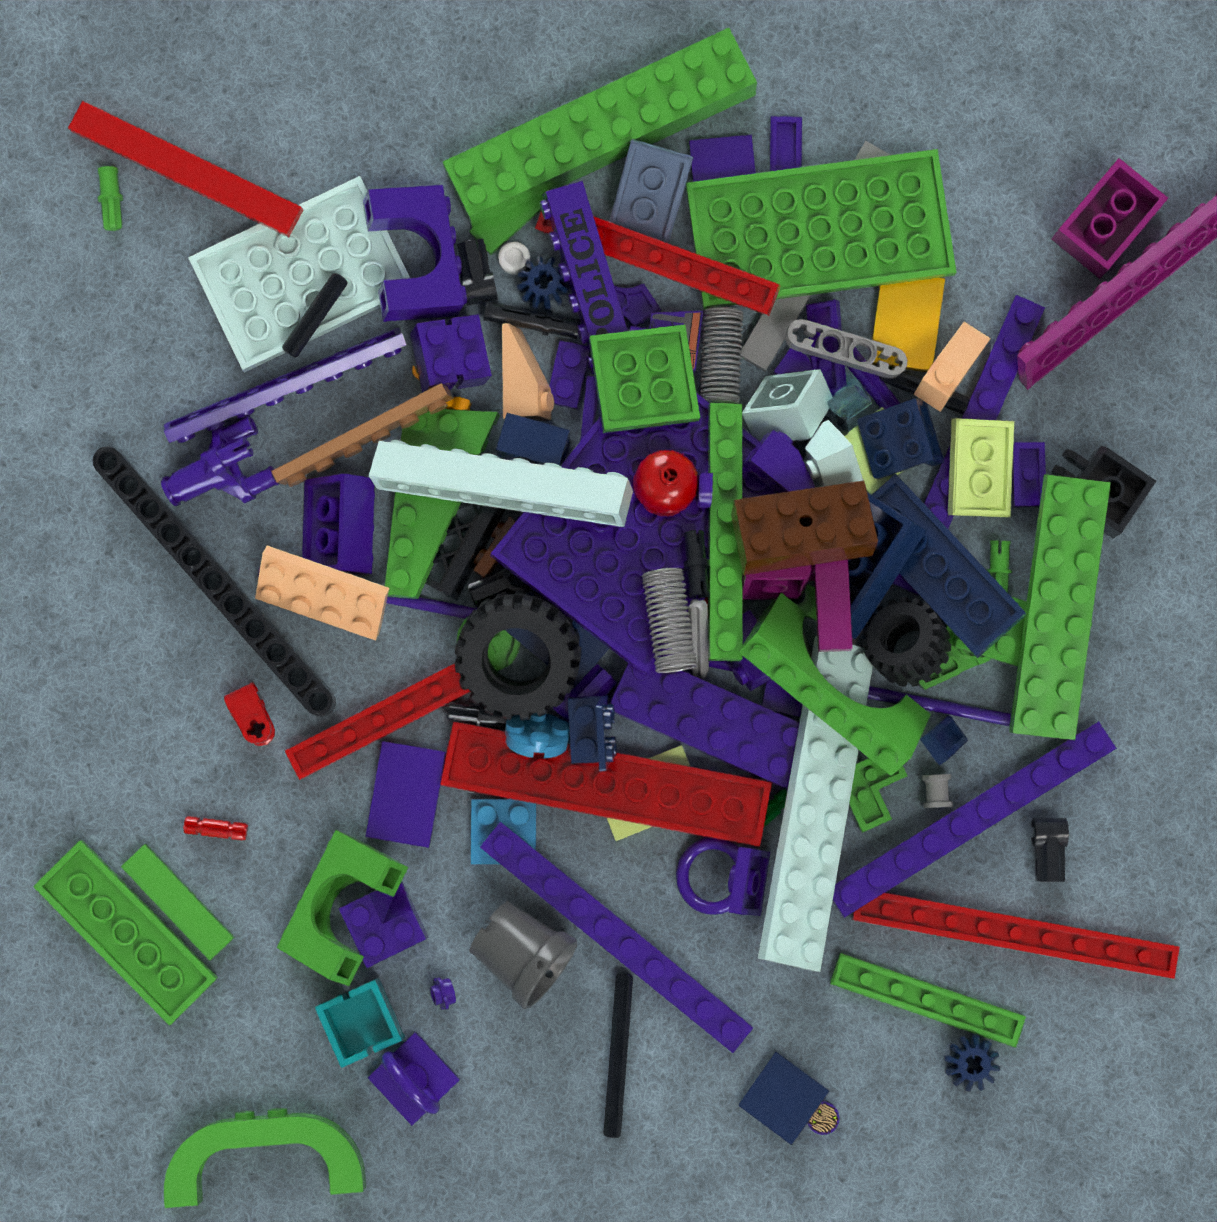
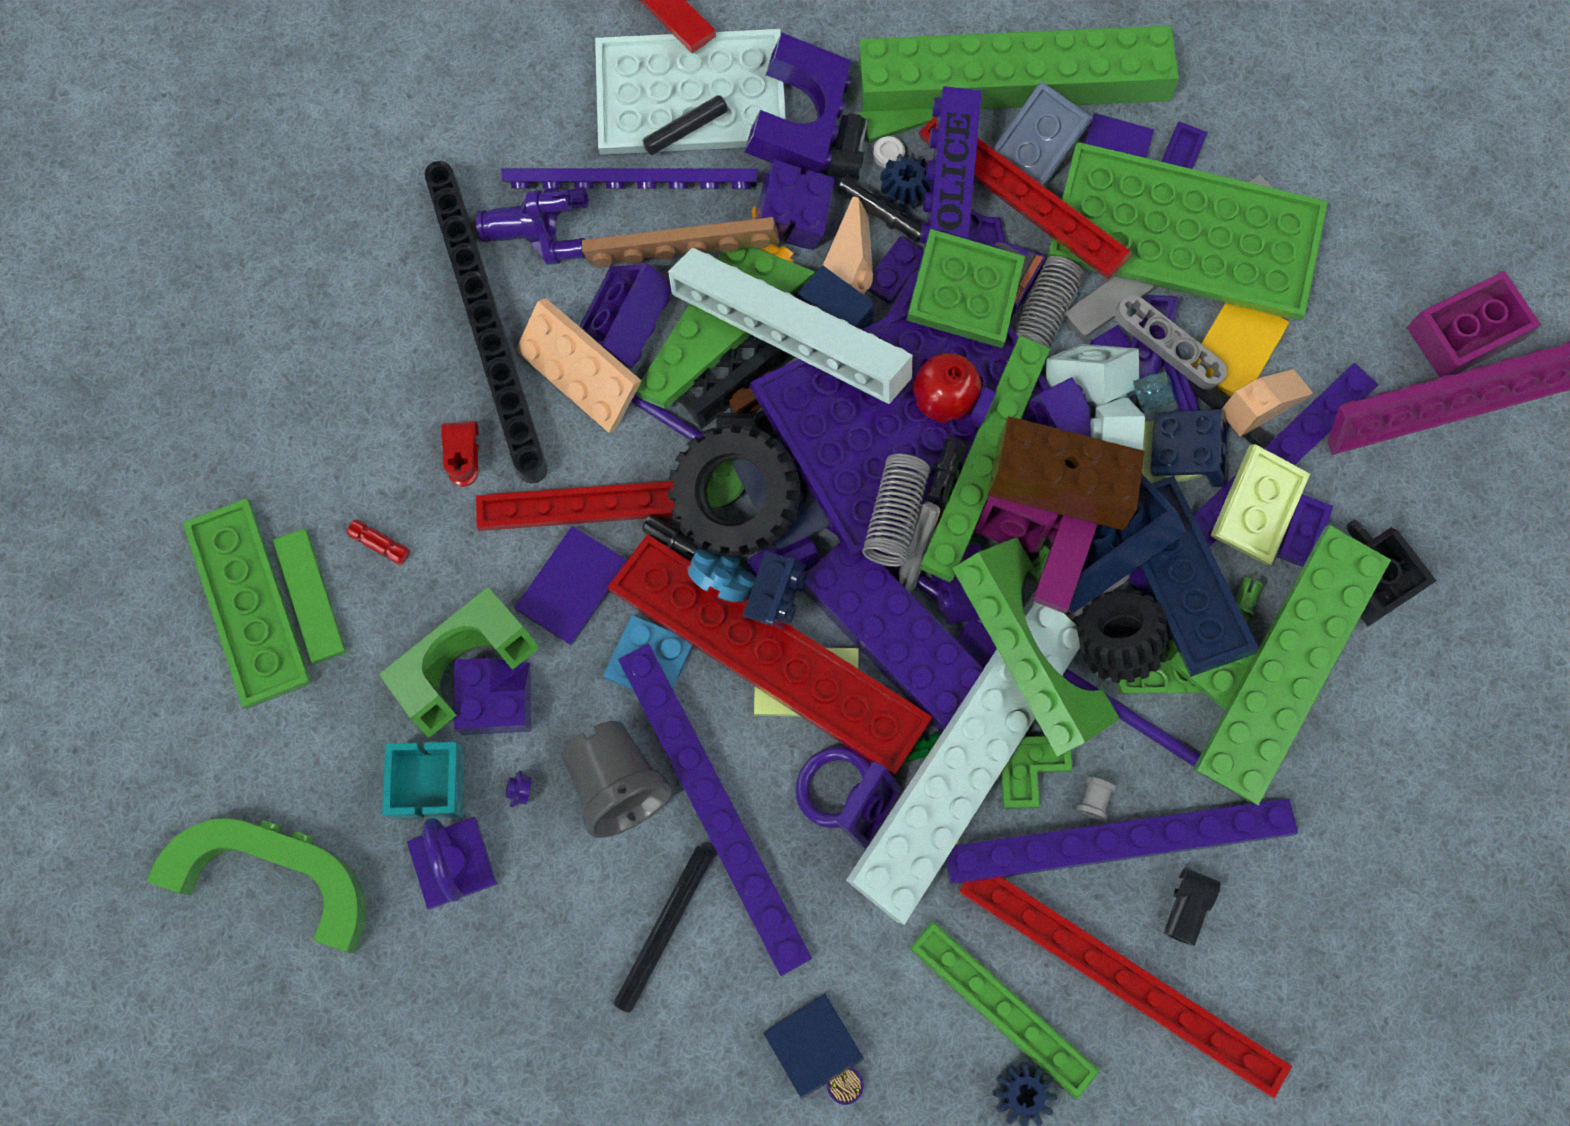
camera: 25 degrees right, 10 degrees down
(944, 739) = (1124, 748): dark blue tile -> none

